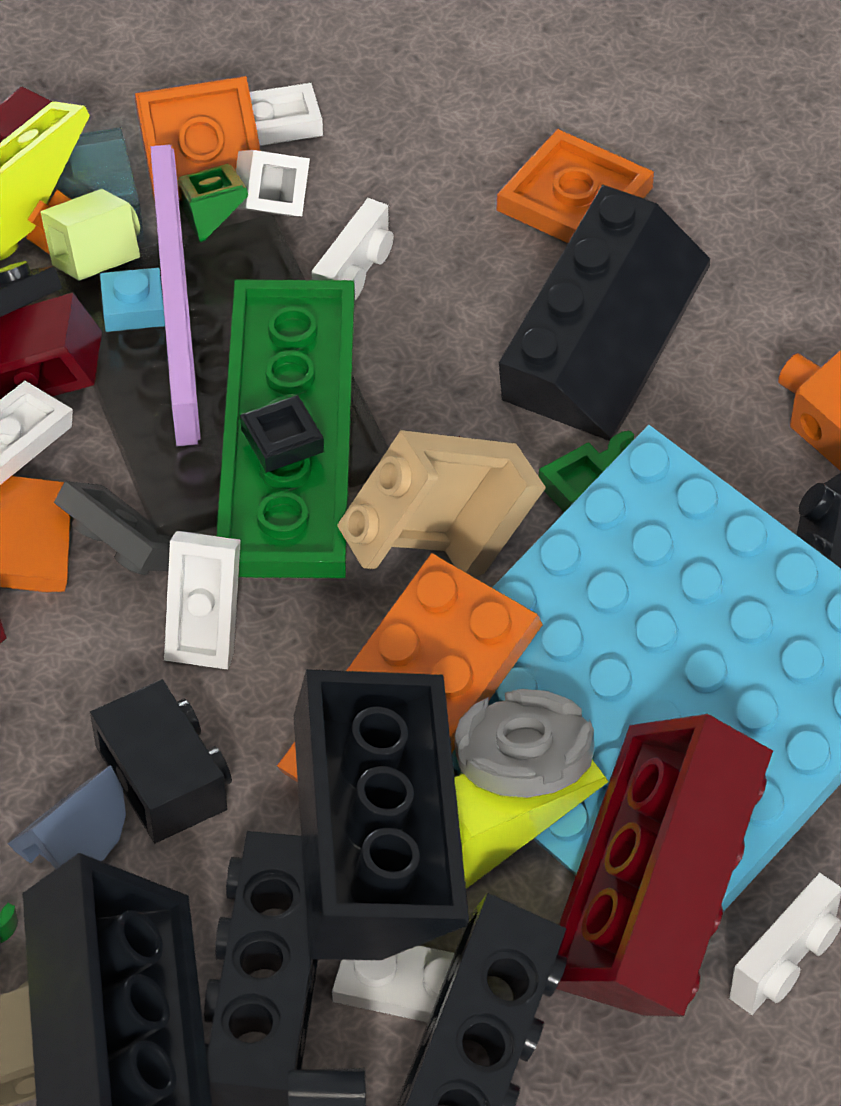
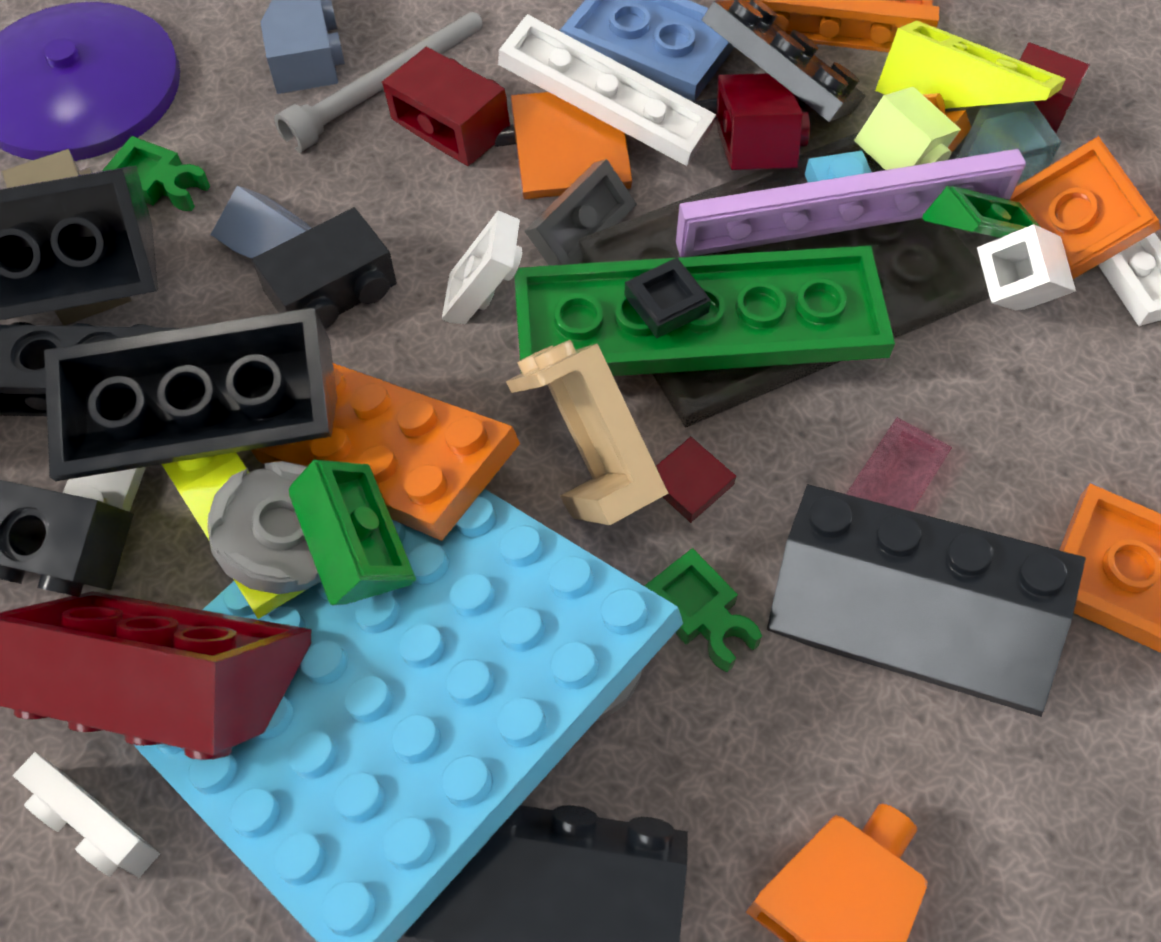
camera: 85 degrees right, 10 degrees up
(358, 246) = (945, 352): white plate -> none
(463, 327) = (900, 467): none -> clear pink tile
(542, 680) = (349, 531): none -> green slope

